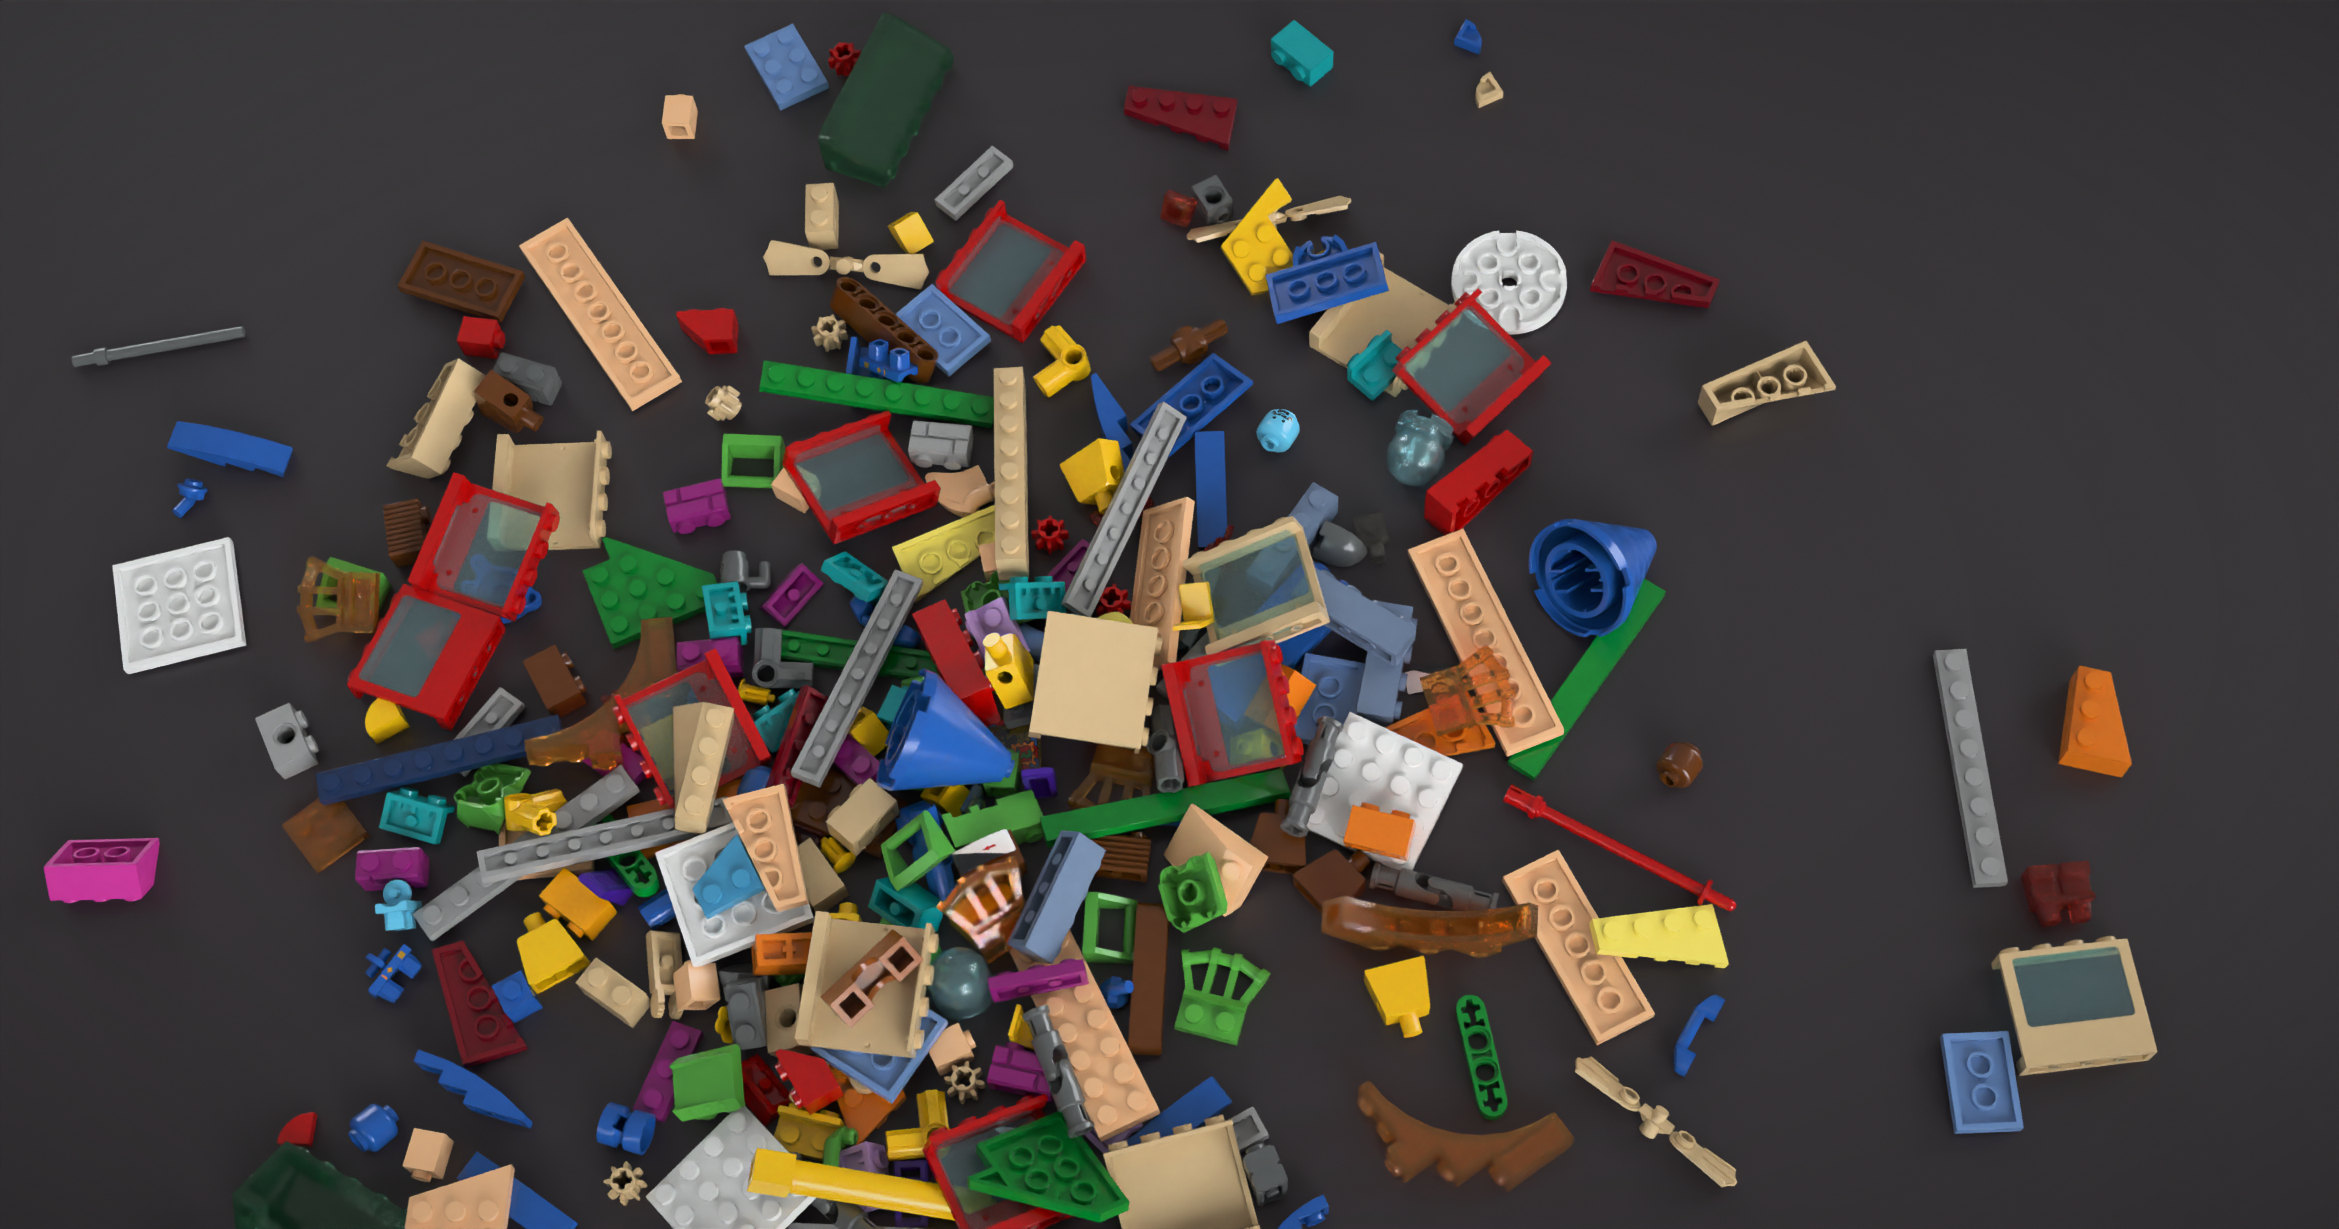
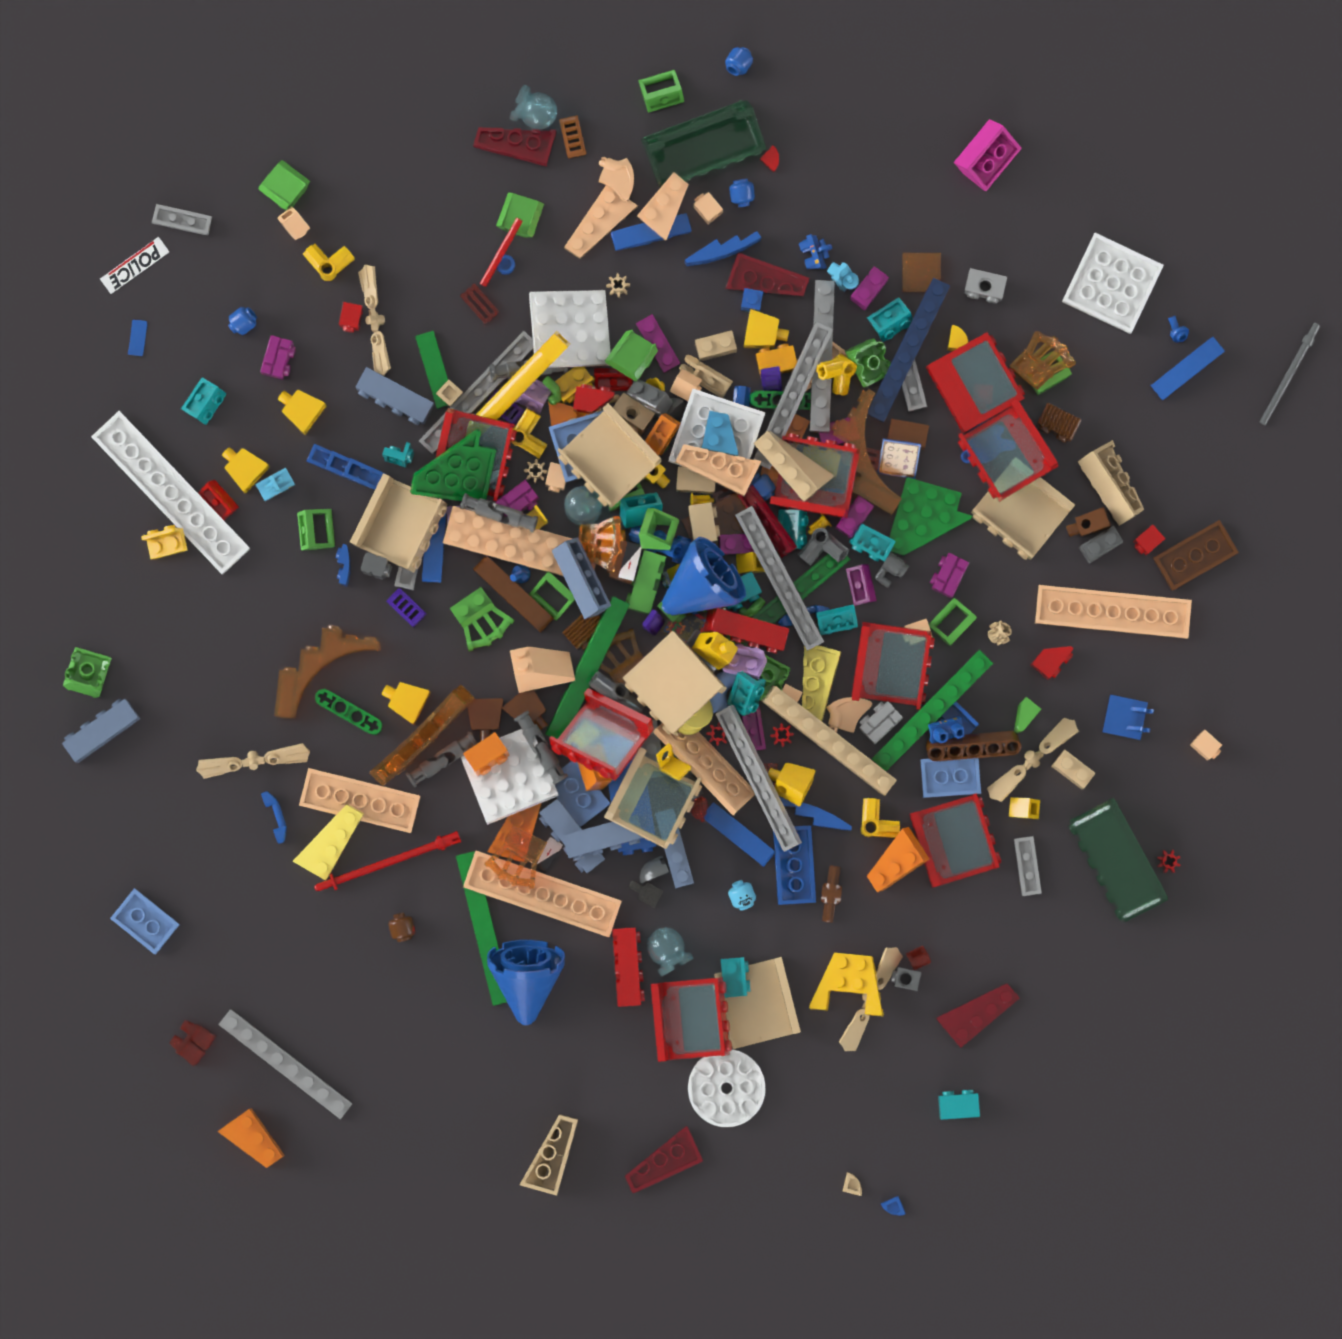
camera: 125 degrees right, 20 degrees up
(592, 666) = (899, 458): none -> piece
(622, 1127) = (637, 307): blue wheel -> none
(714, 214) = (1126, 717): none -> blue plate
(786, 67) = (1194, 828): medium blue plate -> none
(799, 315) = (1025, 714): none -> bright green tile
(829, 333) = (1000, 715): tan gear -> none
(887, 961) = (607, 444): dark orange arch -> none
(1038, 980) = (550, 538): magenta plate -> none
(1089, 297) = (898, 860): none -> orange wedge
(1192, 892) = (531, 642): bright green slope -> none
(1283, 1069) = (417, 618): none -> dark purple slope
(1325, 278) = (802, 990): blue plate -> none
(2076, 1005) = (140, 996): panel -> none

